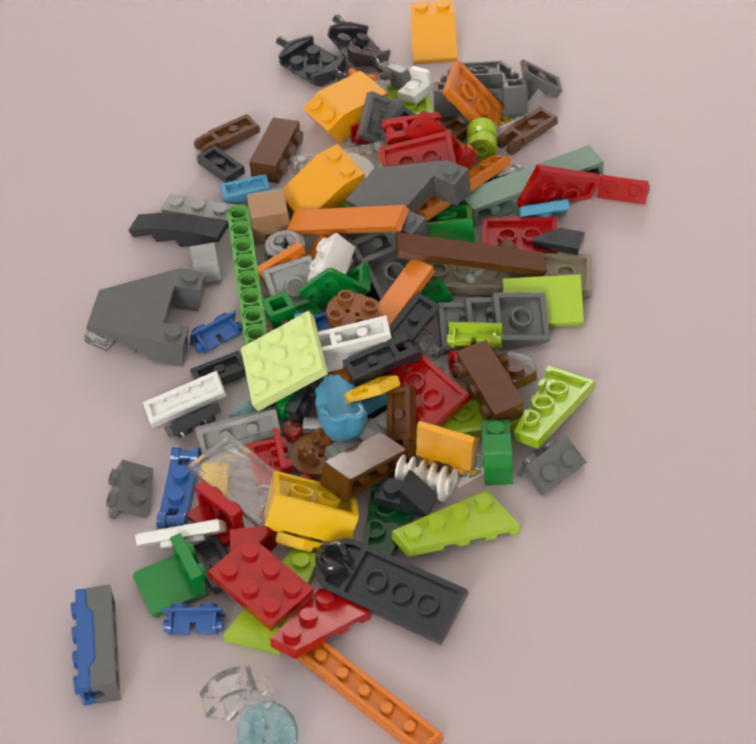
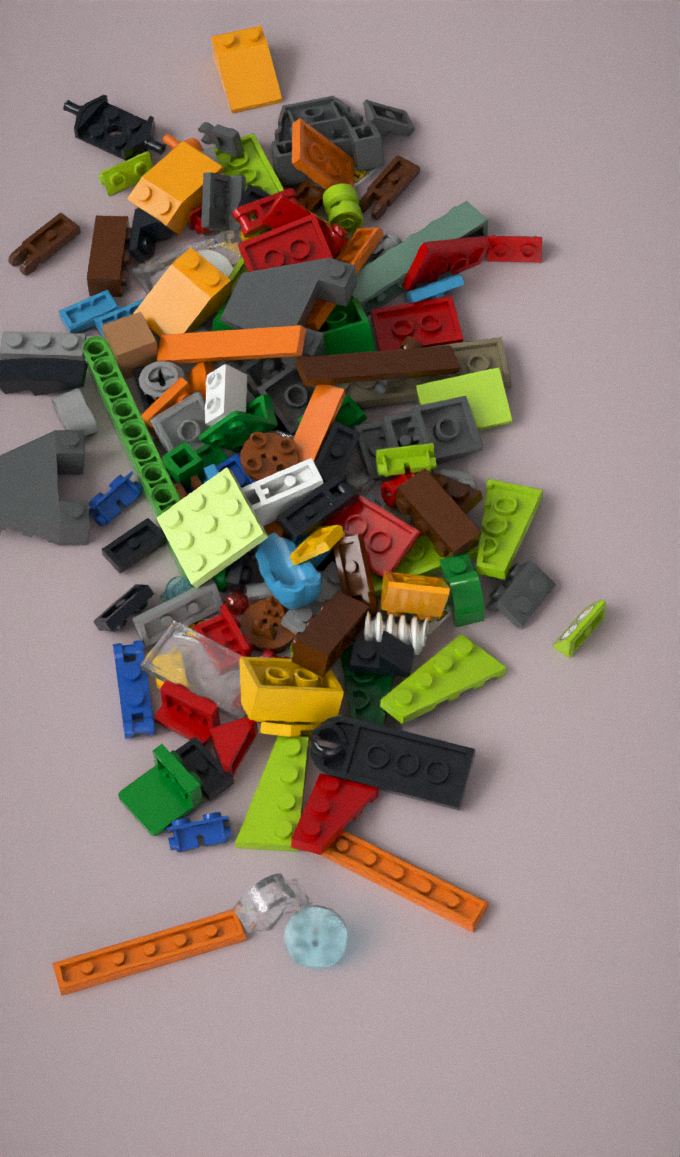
camera: 15 degrees left, 10 degrees up
(96, 645) = (107, 877): piece -> none
(112, 718) = (148, 952): none -> orange tile
(130, 489) = (82, 701): dark grey bracket -> none
(184, 399) = (107, 585): white plate -> none
(193, 532) = (171, 739): white plate -> none
(220, 164) = (50, 284): black plate -> none
(260, 583) = (261, 781): red plate -> none
(302, 94) = (126, 173): none -> lime hinge
(310, 138) = (144, 235): none -> black slope
(355, 43) = (161, 99): black plate -> none
(418, 87) = (251, 151): white bracket -> none
(560, 240) = (465, 327): black tile -> none
(601, 505) = (581, 628): none -> lime slope

